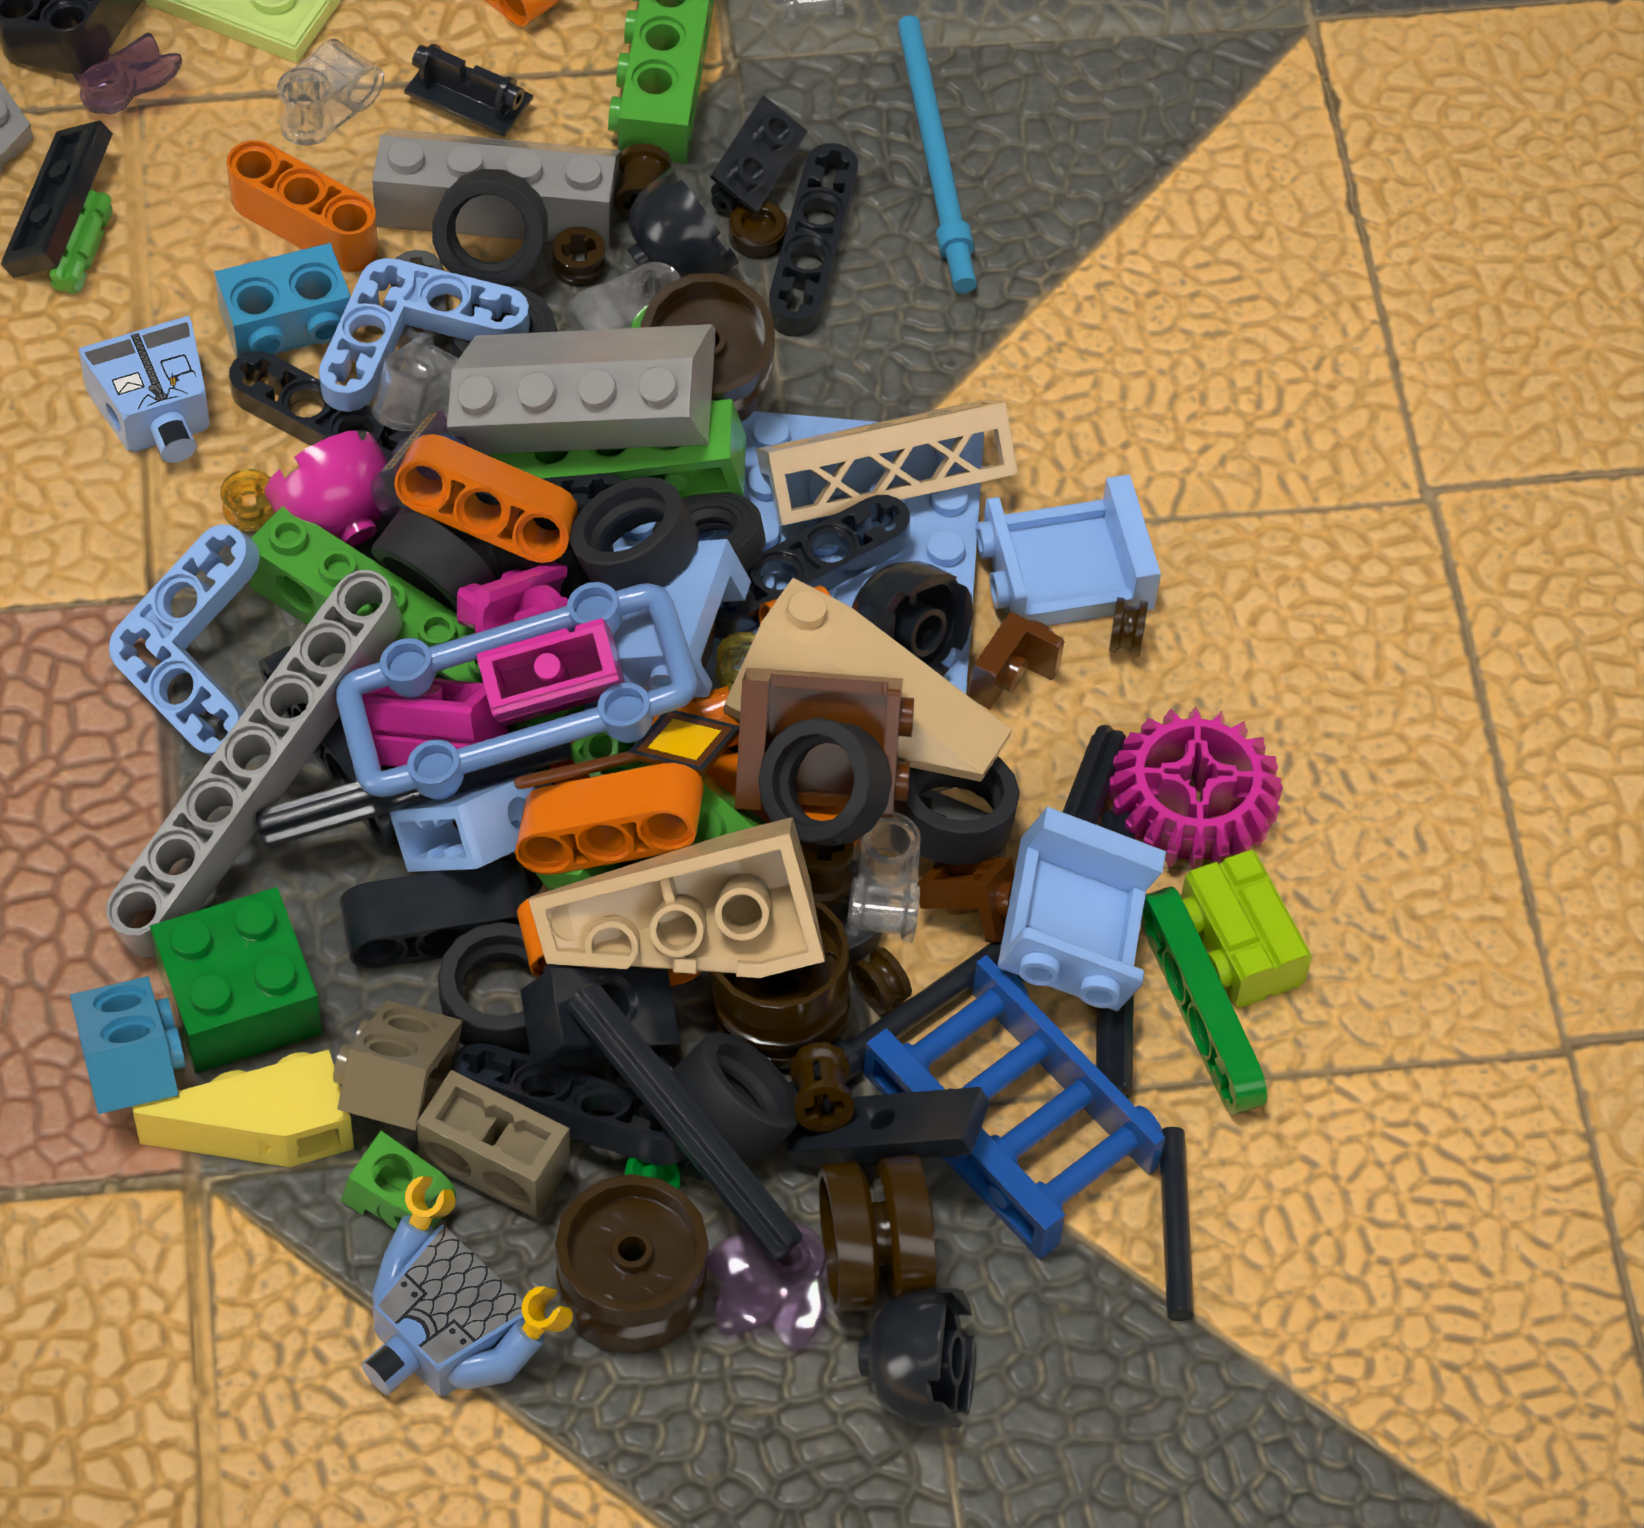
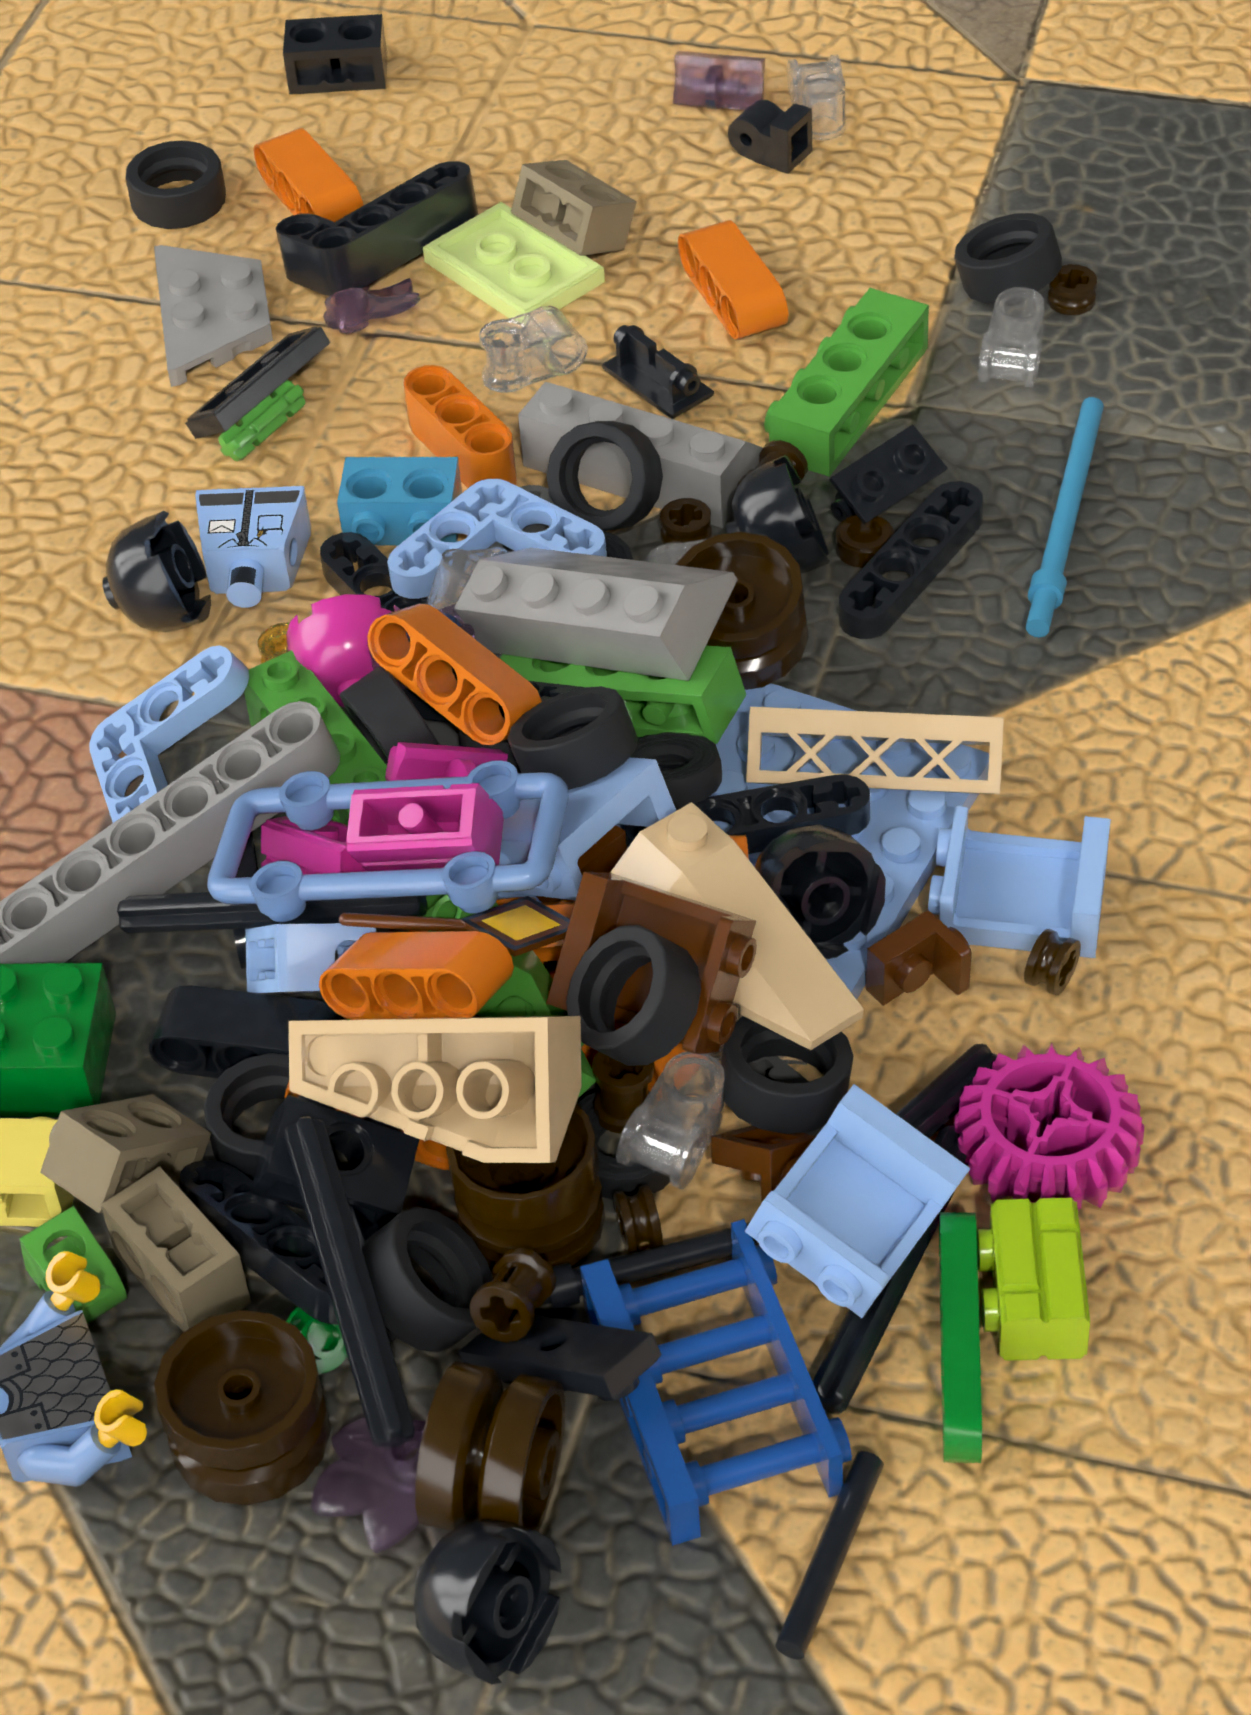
camera: 30 degrees right, 10 degrees down
(80, 456) = (156, 575): none -> black cylinder

